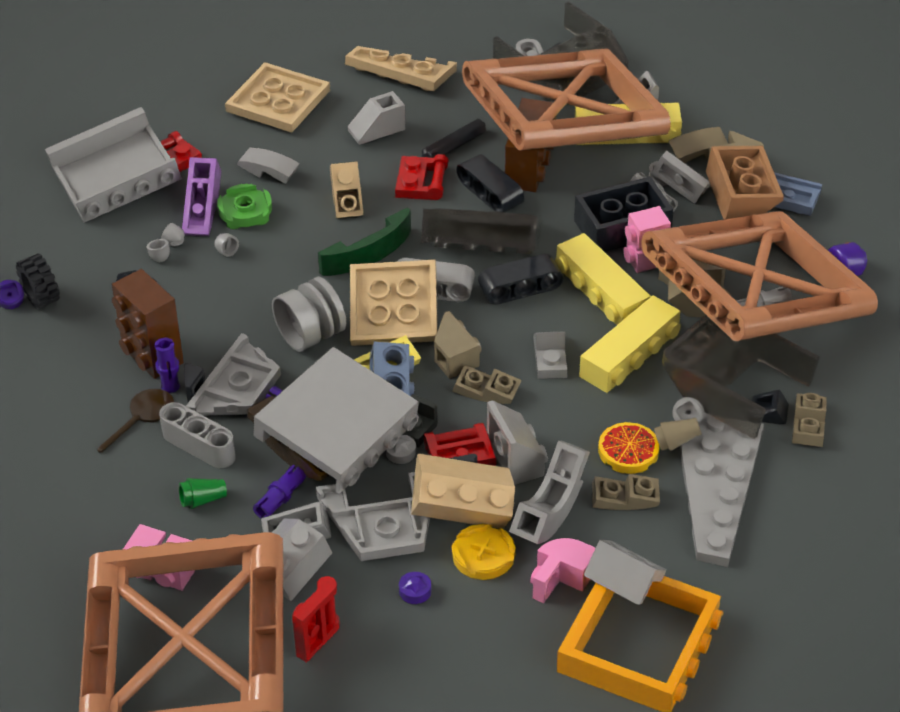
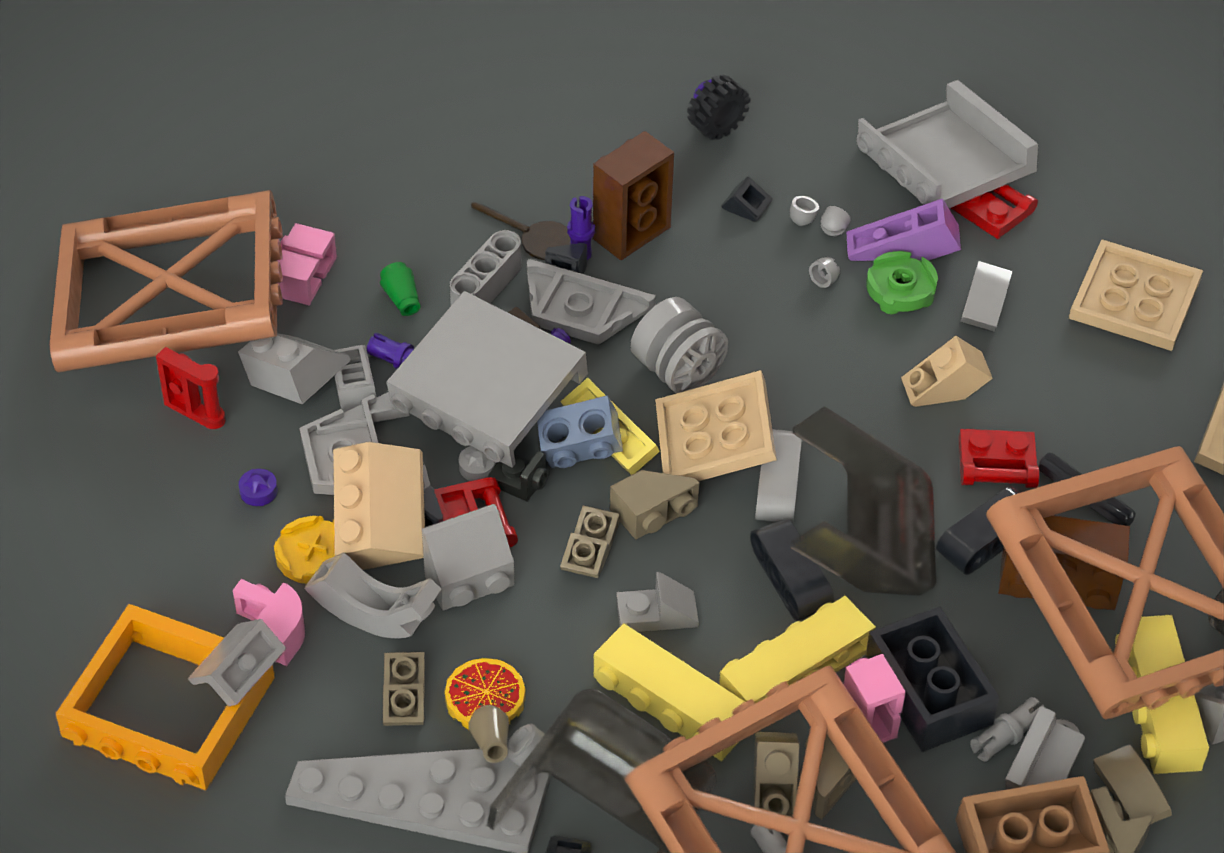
camera: 85 degrees right, 5 degrees up
(371, 249) = (814, 394): dark green slope -> none
(378, 118) = (1101, 399): light grey slope -> none

